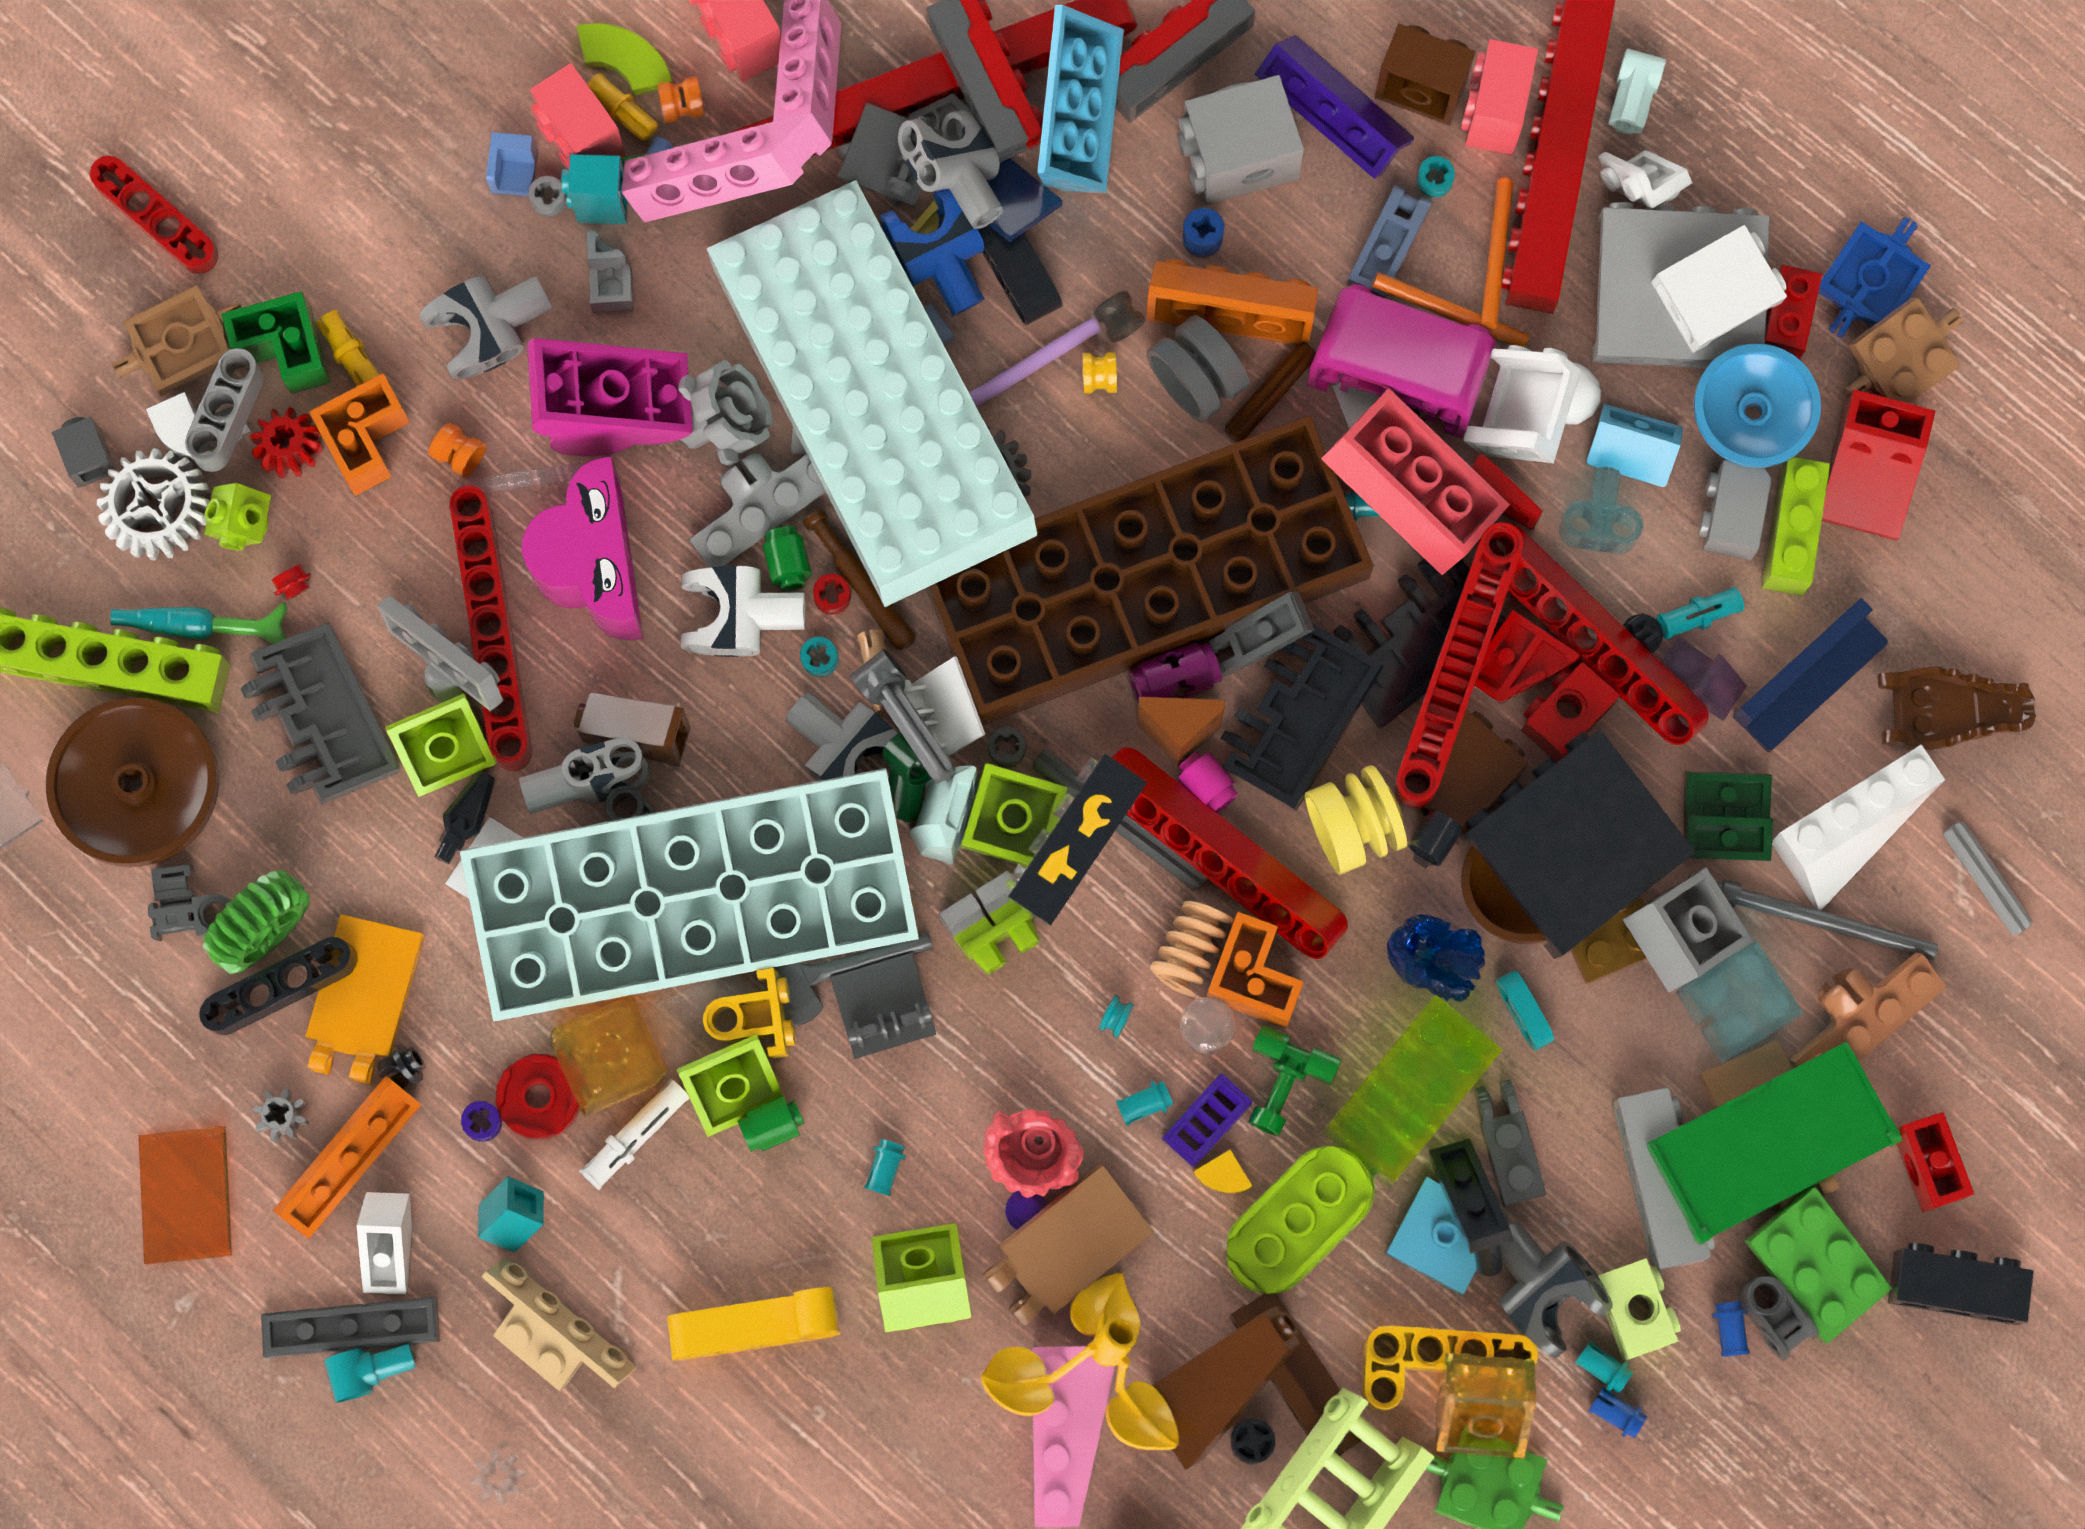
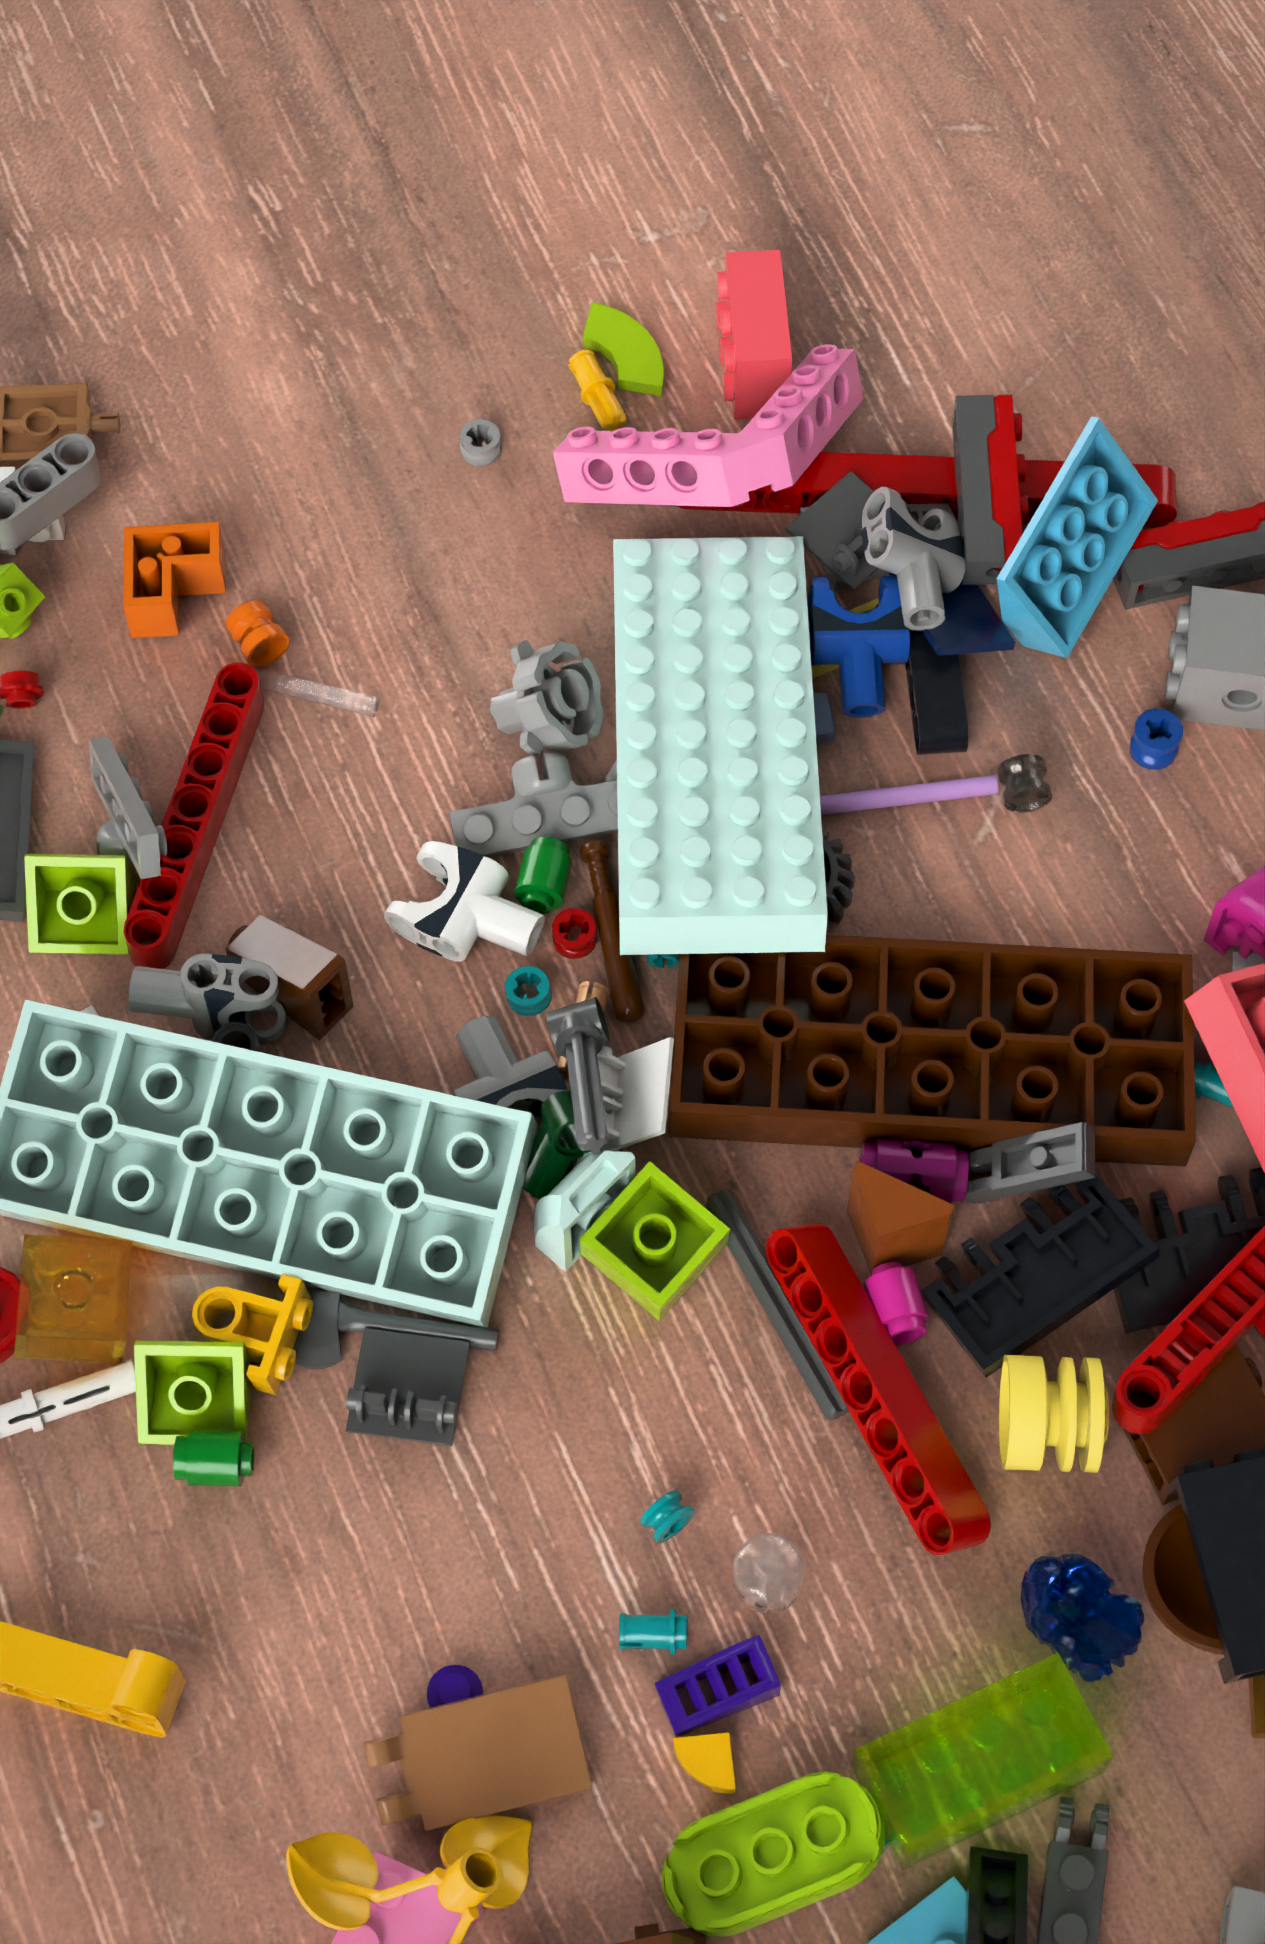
camera: 25 degrees right, 15 degrees down
(153, 214) = (84, 310): red beam -> none
(283, 331) = (144, 457): green brick -> none
(301, 441) = (88, 558): red gear -> none
(346, 348) = (200, 496): yellow pin -> none
(465, 816) = (73, 985): black piece -> none
(488, 318) = (355, 529): light grey connector -> none
(511, 163) = (458, 395): medium blue panel -> none
(574, 117) = (541, 378): coral brick -> none
(584, 553) = (333, 774): dark pink brick -> none
(595, 189) = (525, 443): teal brick -> none
(606, 396) = (428, 630): dark pink brick -> none
(608, 276) = (503, 538): light grey slope -> none
(672, 102) = (661, 404): orange wheel -> none
(885, 1166) = (317, 1566): teal pin -> none
(920, 1277) = (290, 1713): lime slope -> none
(975, 934) = (550, 1351): lime hips -> none
(1006, 734) = (694, 1157): dark grey bush -> none
(1029, 1164) = (473, 1625): coral hair -> none
(1075, 840) = (709, 1285): black brick -> none
(1099, 372) = (975, 829): yellow wheel -> none
(1189, 946) = (789, 1472): light nougat piece -> none
(1198, 368) = (1087, 861): dark grey wheel -> none
(1232, 302) = (1154, 818): orange slope -> none
(1245, 981) = (839, 1539): orange brick -> none
(1270, 392) = (1160, 925): reddish brown axle -> none
(1291, 1064) = (849, 1667): green bar -> none
(1434, 839) = (1135, 1476): black piece -> none
(1524, 1010) = (1162, 1730): teal beam -> none

